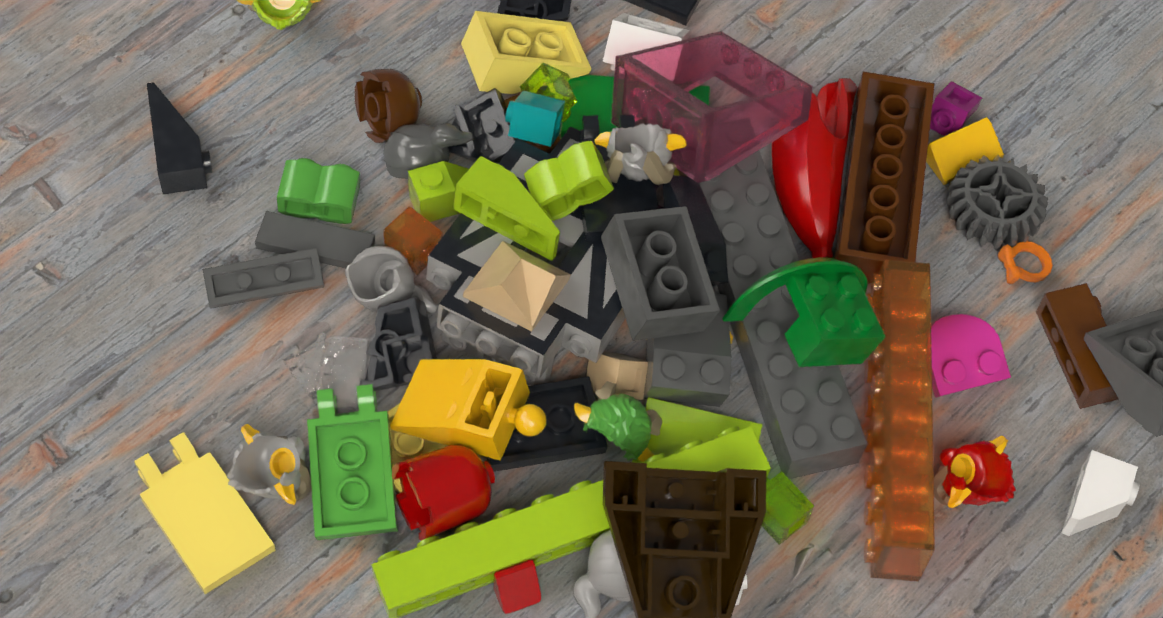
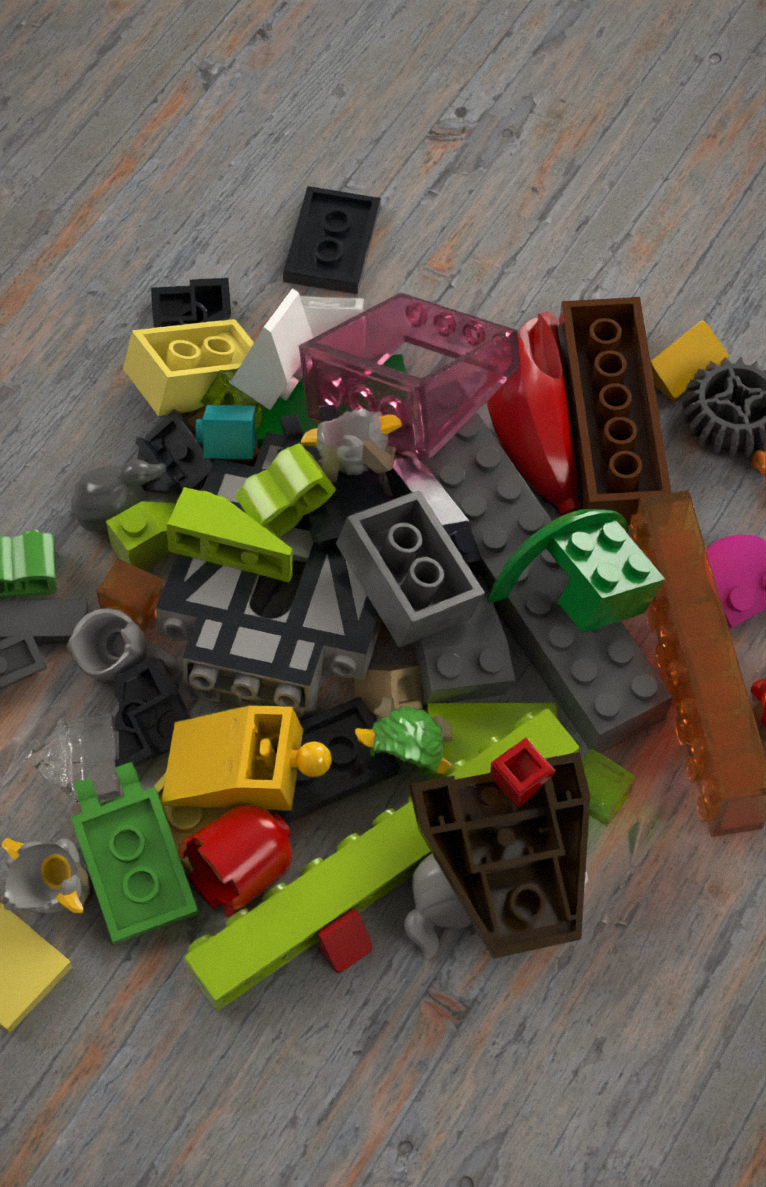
camera: 10 degrees left, 0 degrees up
(386, 102) = (60, 452): reddish brown cylinder -> none
(516, 285) = (260, 618): tan slope -> none
(591, 62) = (274, 360): none -> white slope
(708, 475) = (521, 771): none -> red slope
(953, 108) = (664, 318): magenta bracket -> none

